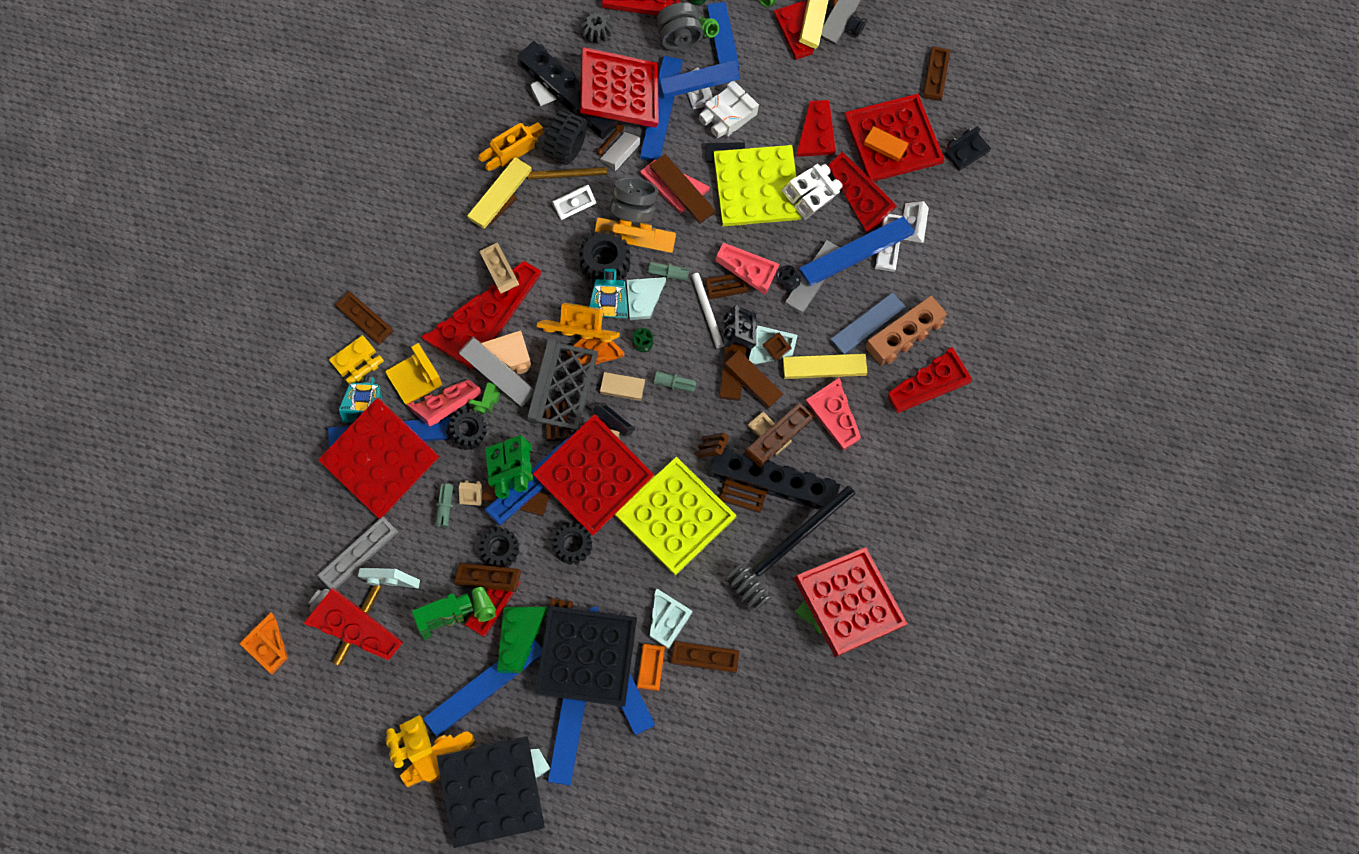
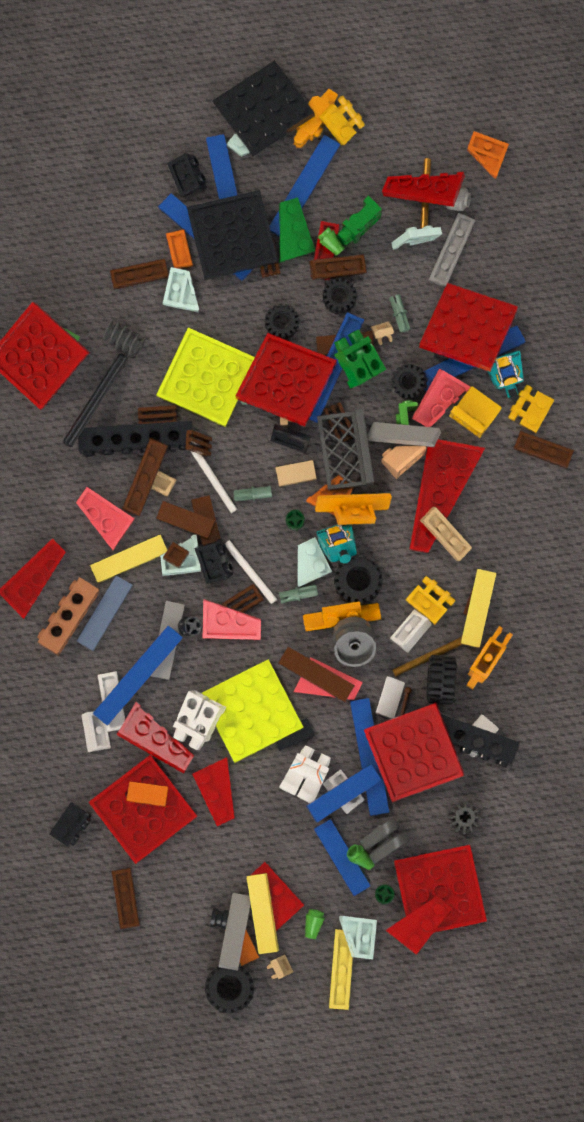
camera: 160 degrees right, 10 degrees up
(547, 215) = (426, 604): none -> yellow plate
(608, 748) = (187, 174): none -> black bracket
(707, 403) = (215, 482): none -> white bar

